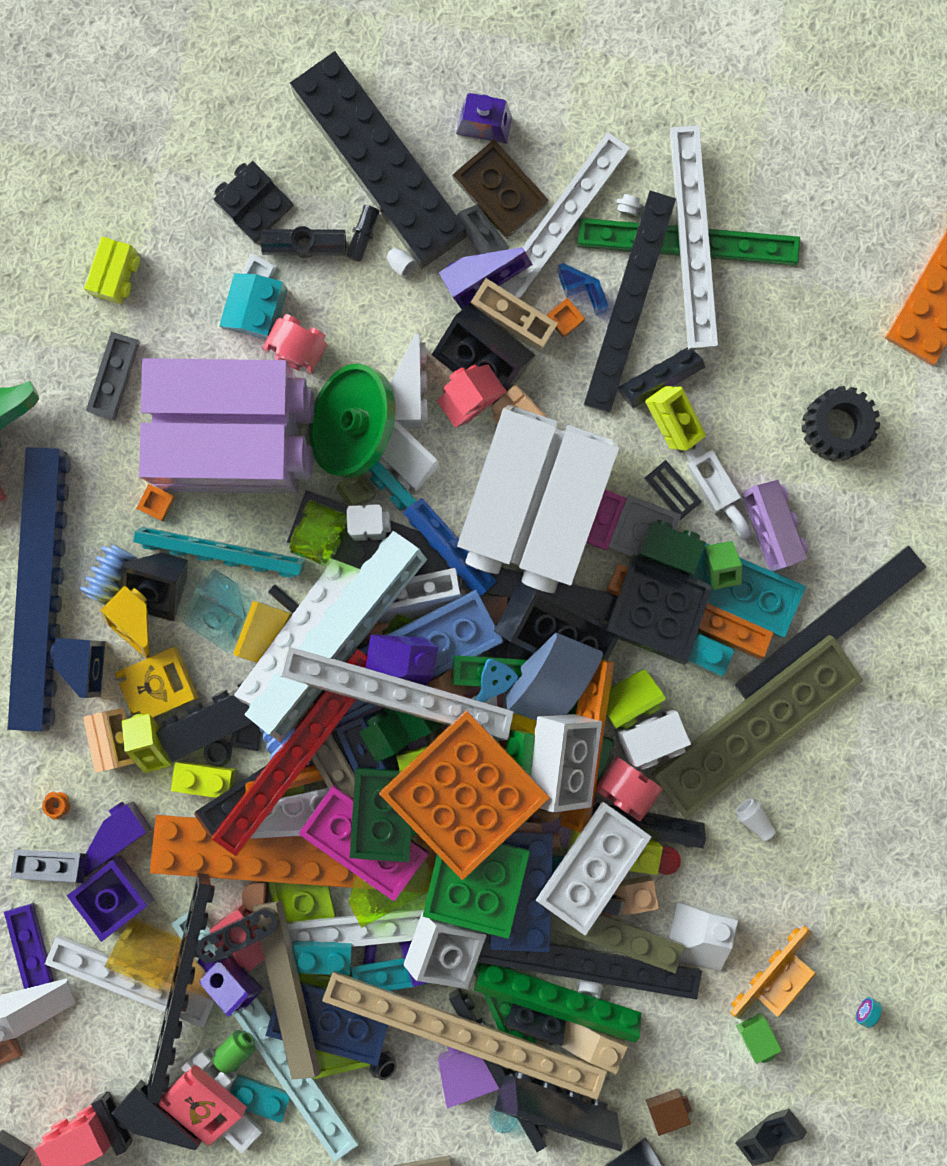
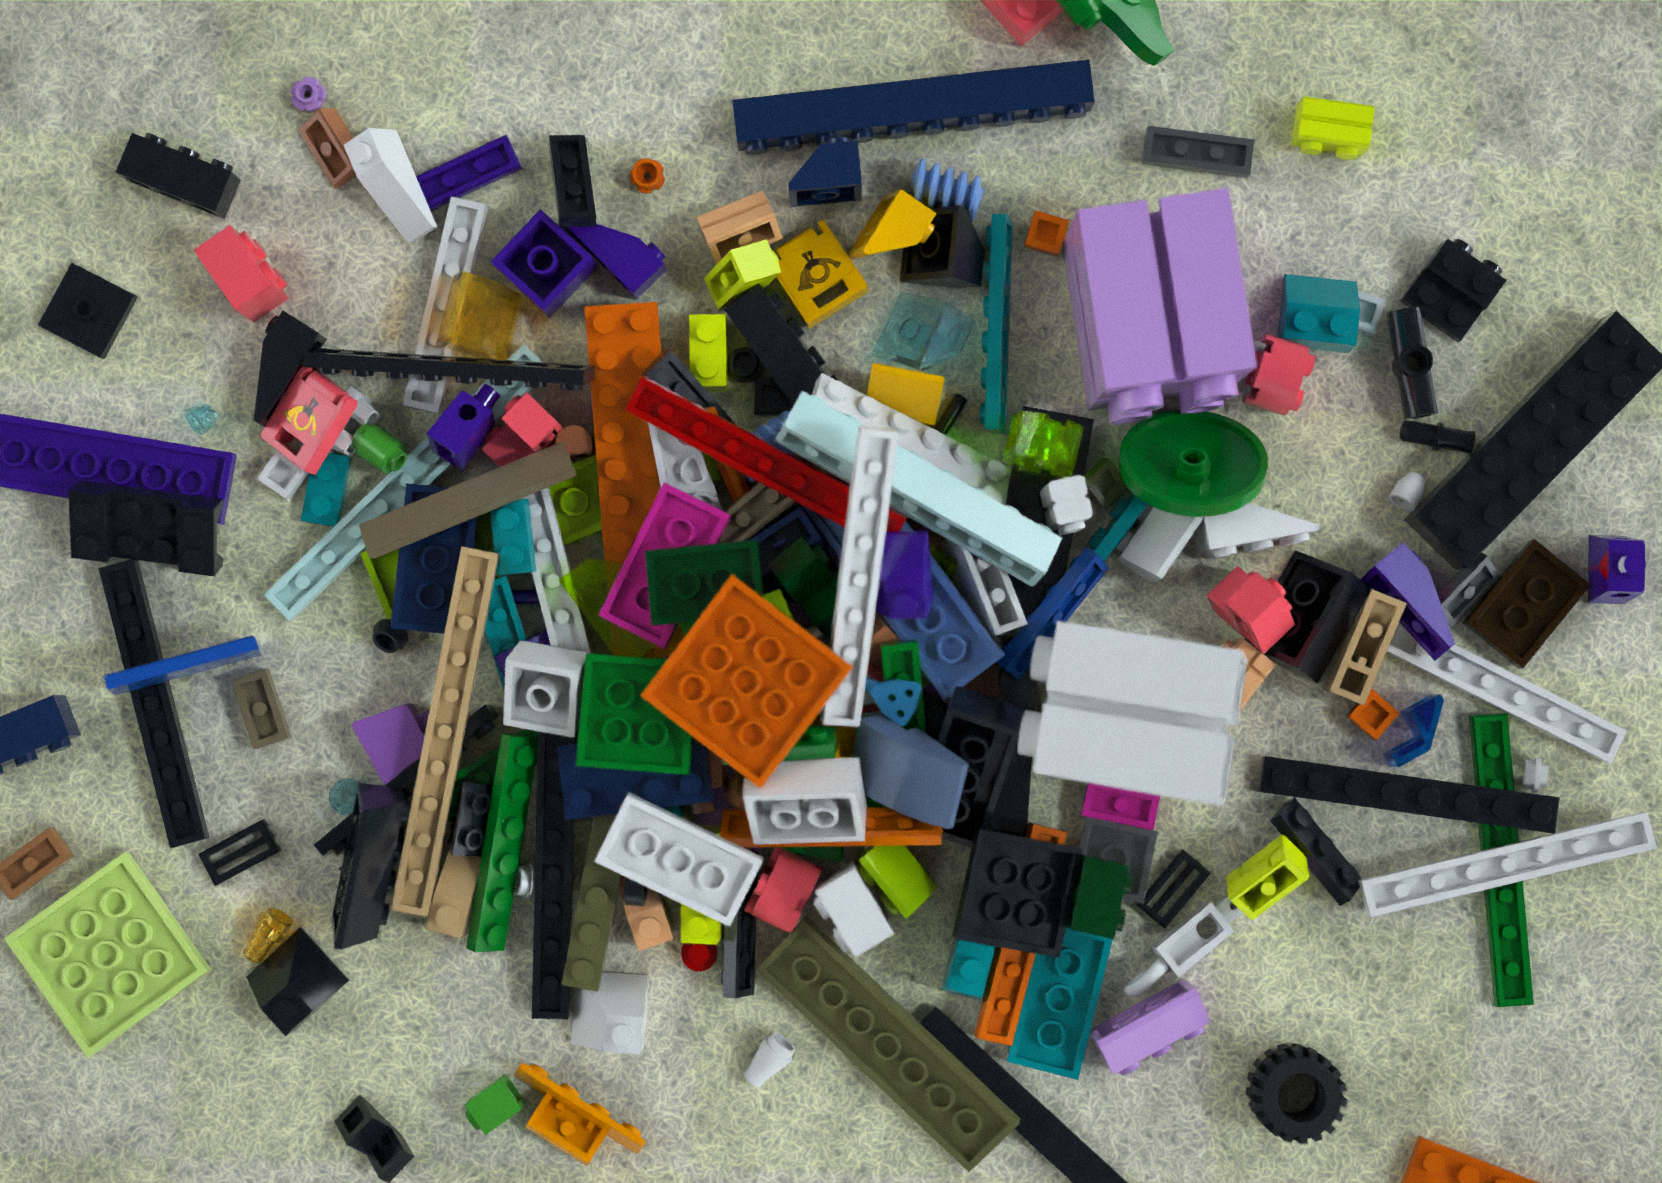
camera: 80 degrees right, 0 degrees up
(118, 1137) = (255, 323): black tile -> none
(215, 936) = (504, 411): black beam -> none
(669, 1111) = (387, 1004): reddish brown brick -> none
(723, 565) = (1088, 966): bright green brick -> none

